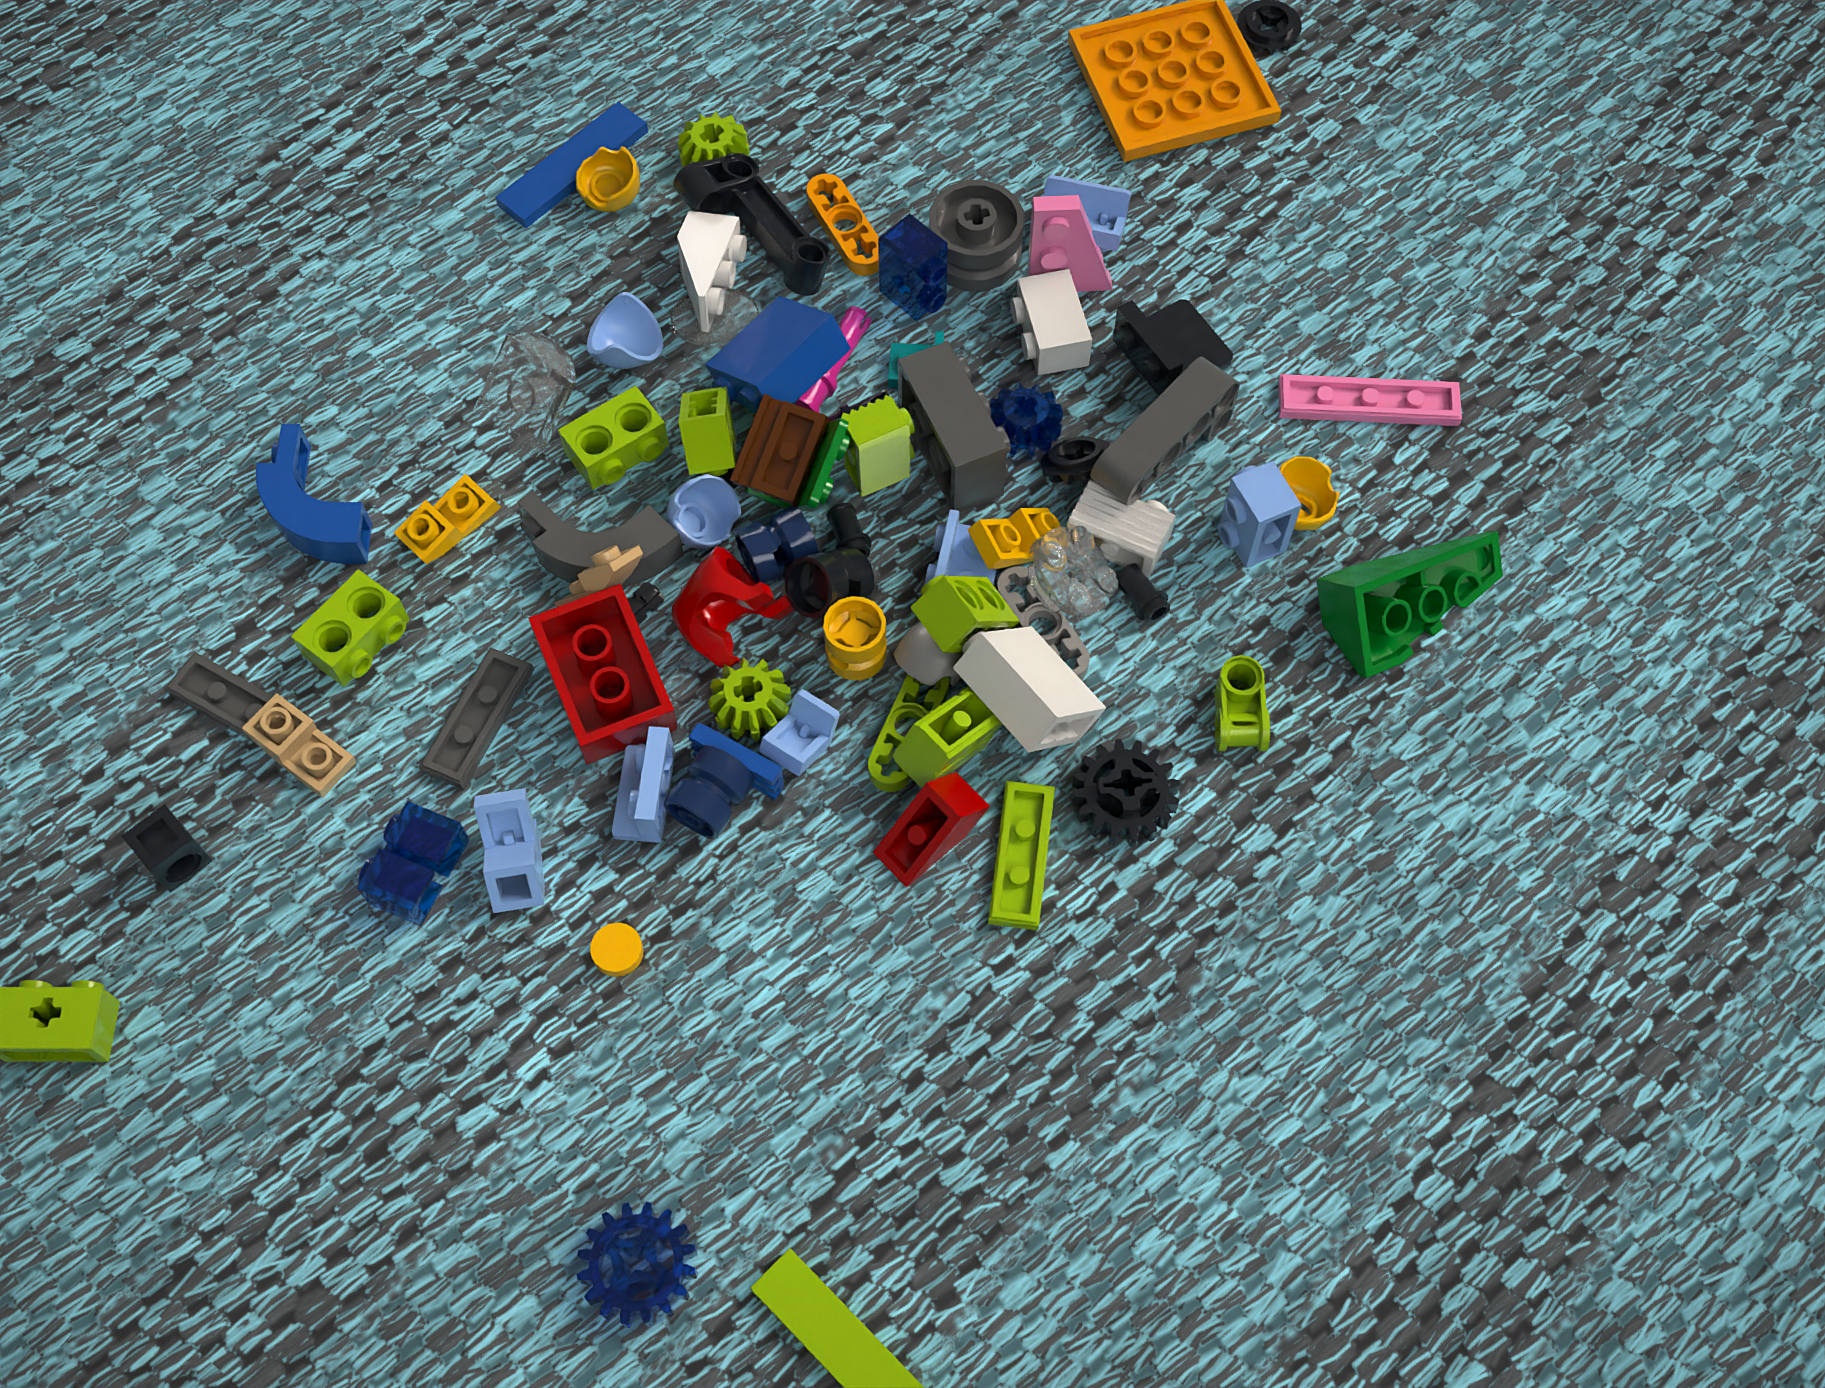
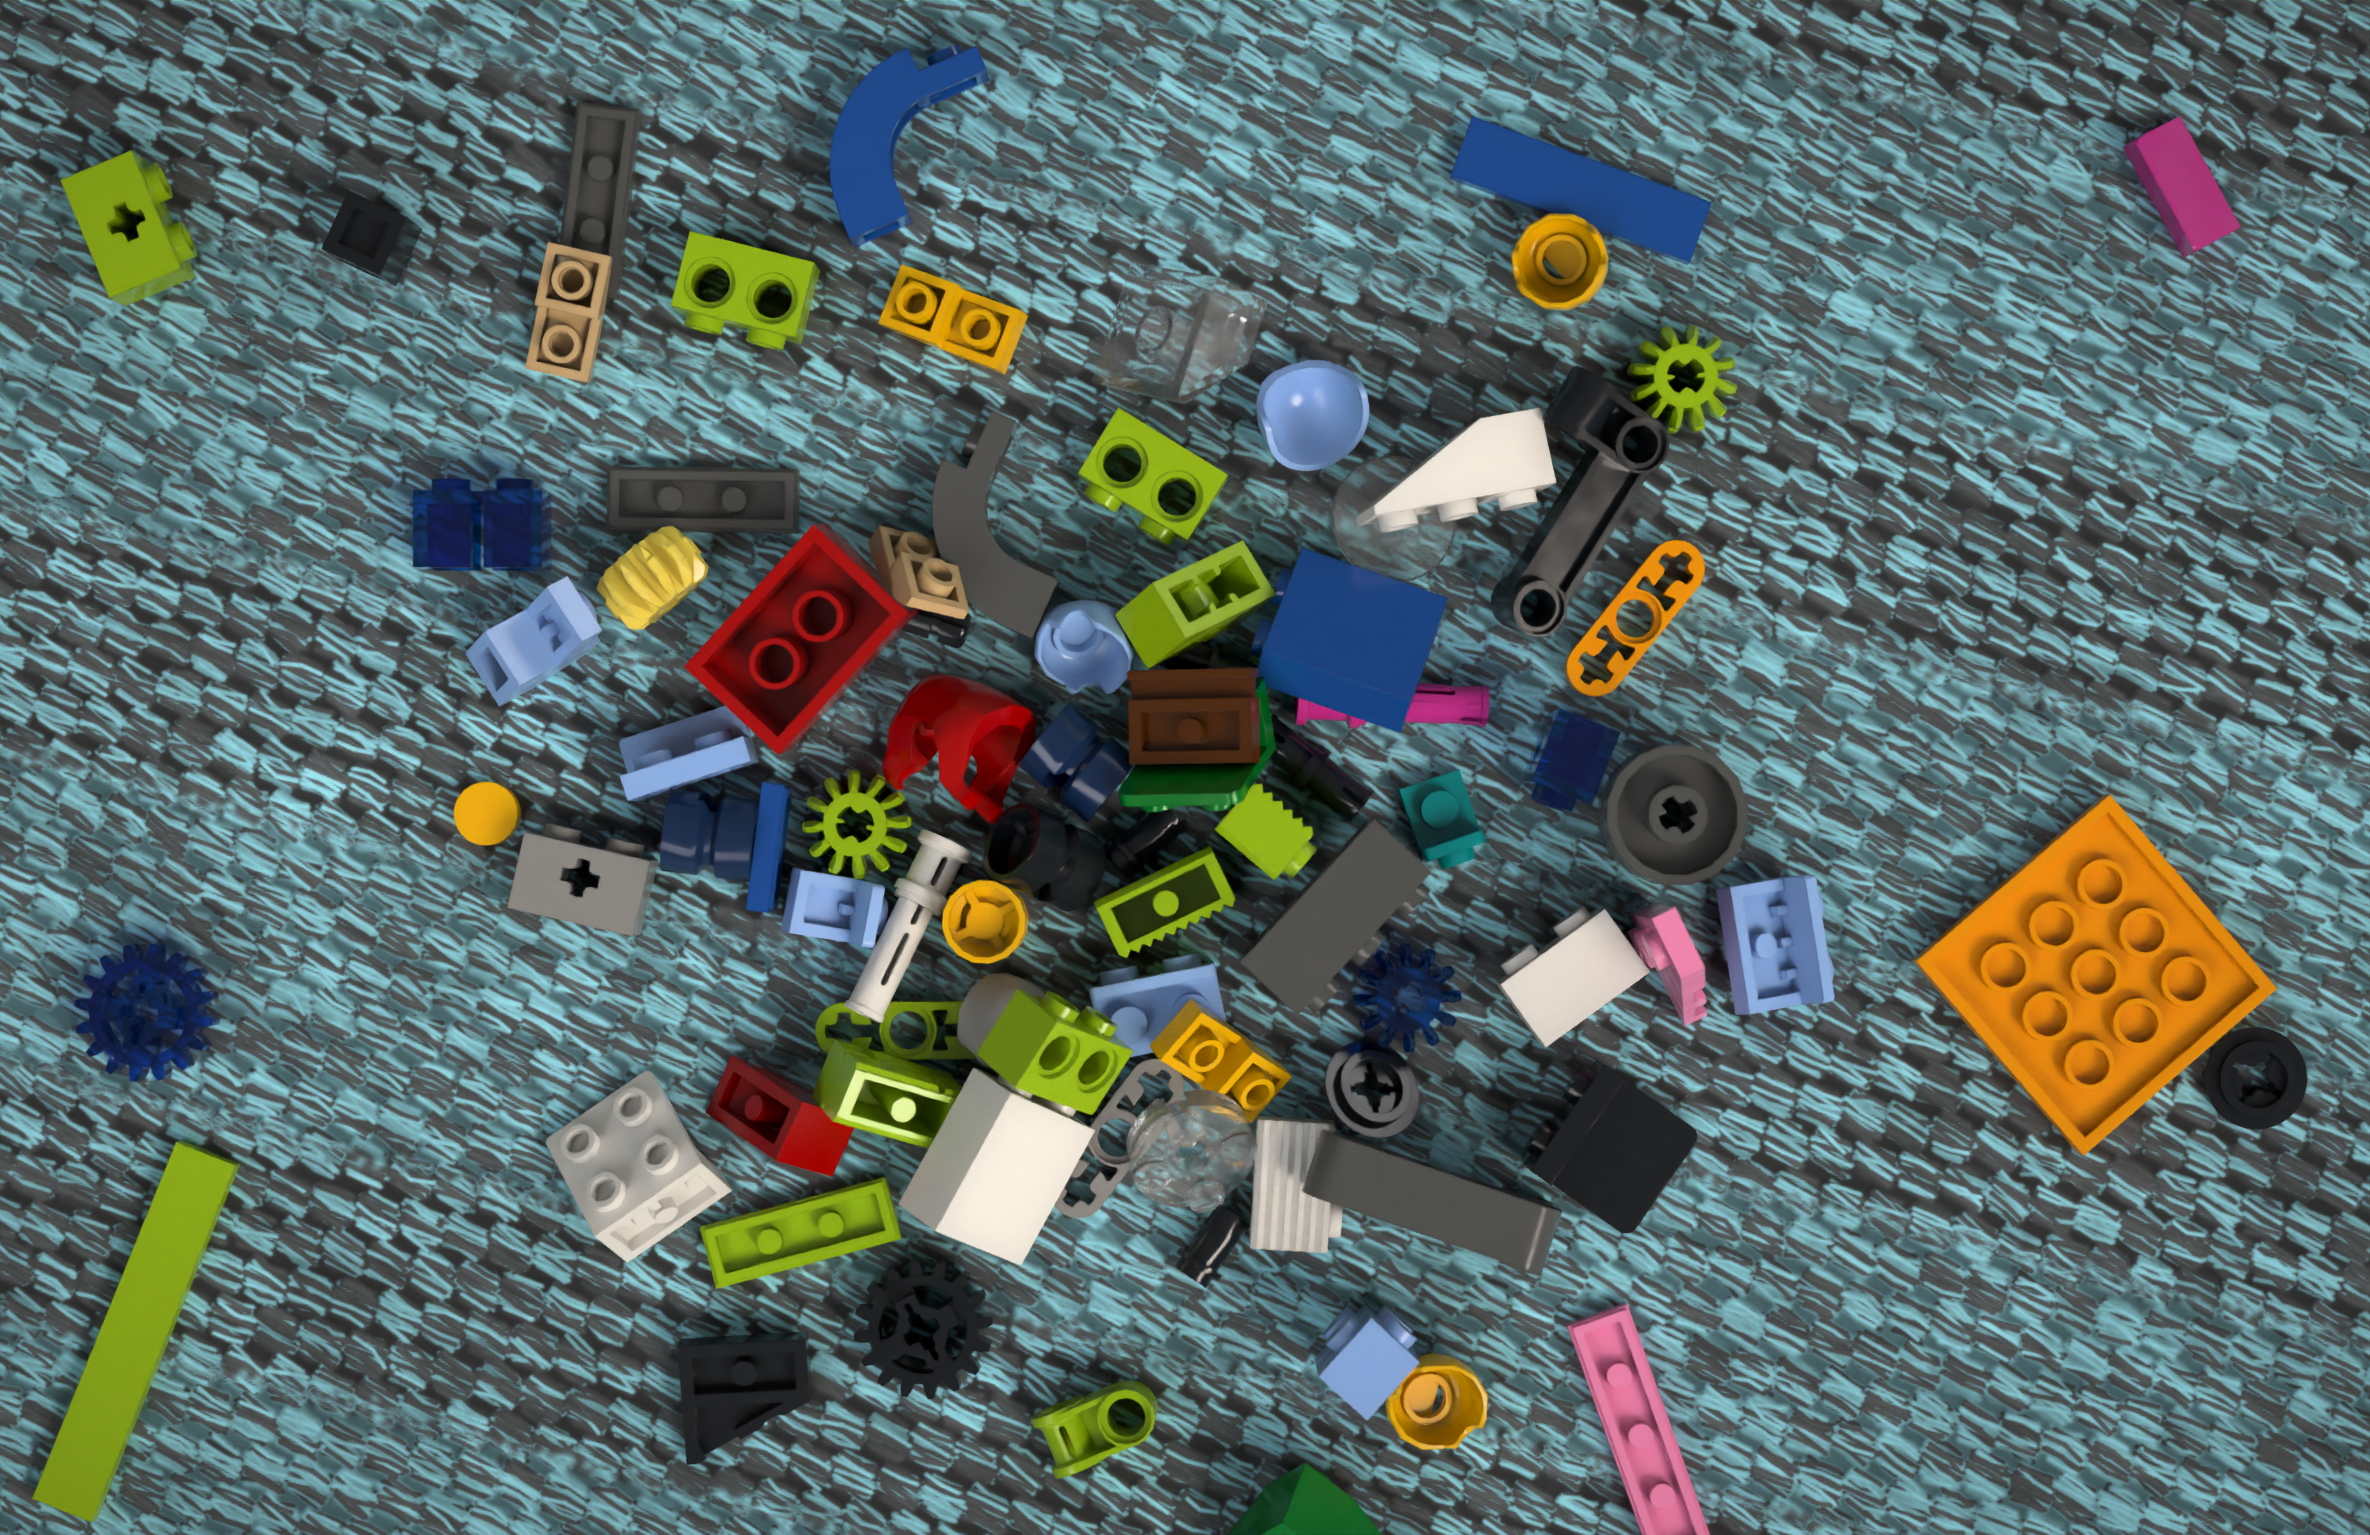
camera: 70 degrees right, 25 degrees up
(509, 754) = (652, 578): none -> light yellow gear
(696, 920) = (544, 885): none -> light grey brick
(821, 679) = (919, 898): none -> white pin
(896, 525) = (1165, 901): none -> lime brick
(923, 943) = (635, 1168): none -> white bracket
(1117, 938) = (738, 1385): none -> black wing

